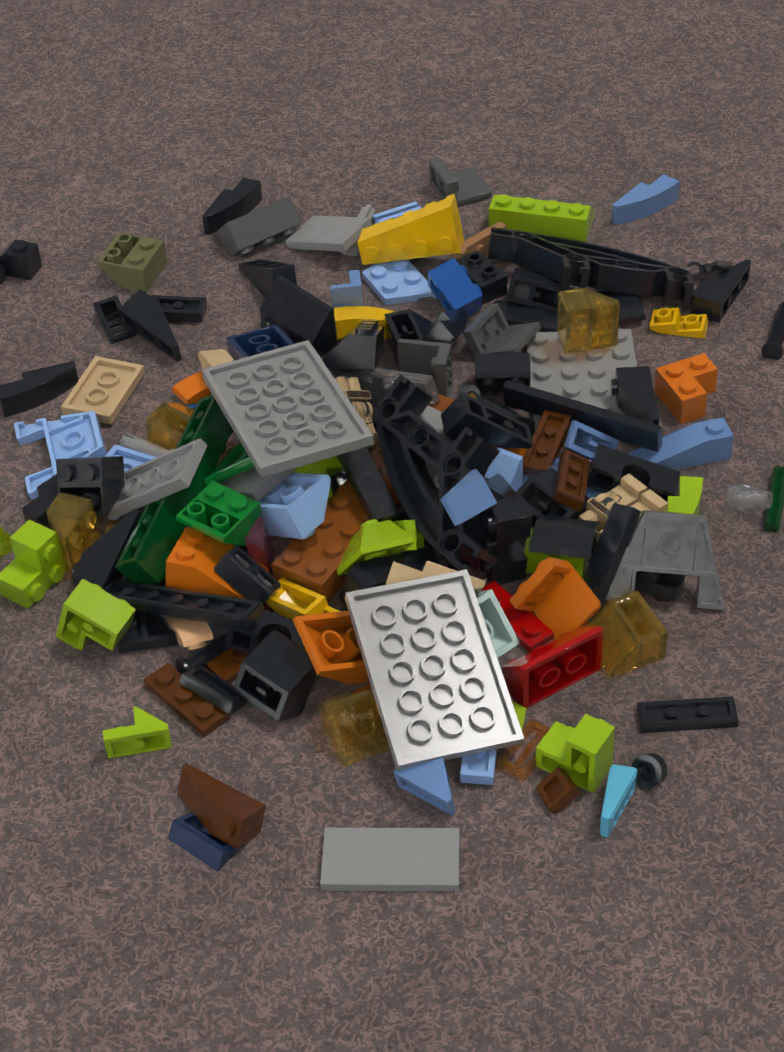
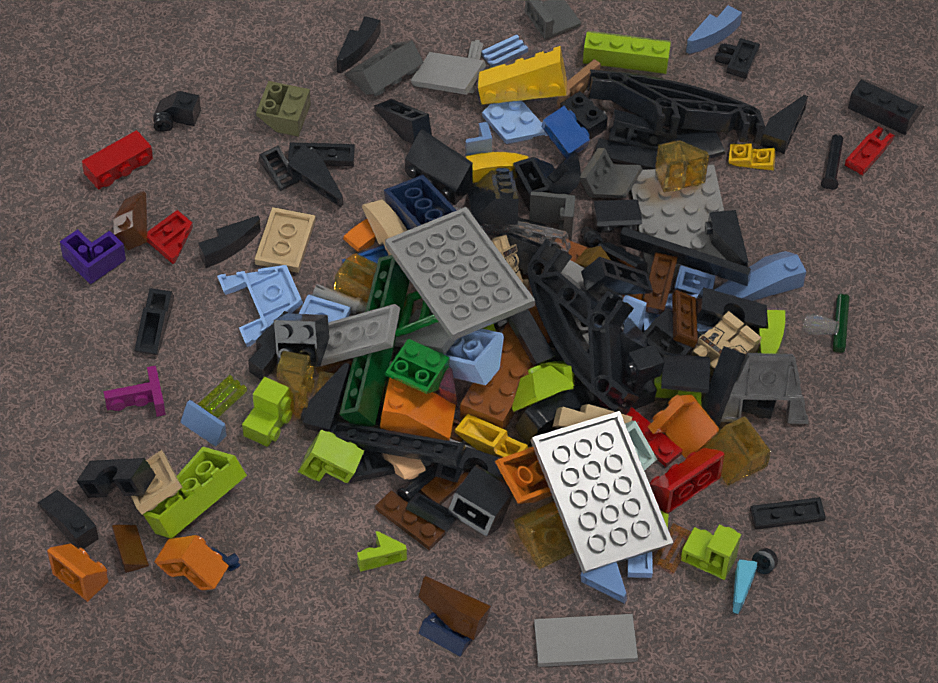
camera: 10 degrees left, 10 degrees up
(246, 576) = (444, 417): black slope -> none
(468, 498) = (616, 351): medium blue slope -> none
(557, 790) = (700, 580): reddish brown tile -> none
(672, 228) = (739, 57): none -> black hinge
(685, 386) = (762, 221): orange brick -> none
(718, 265) = (780, 99): black piece -> none

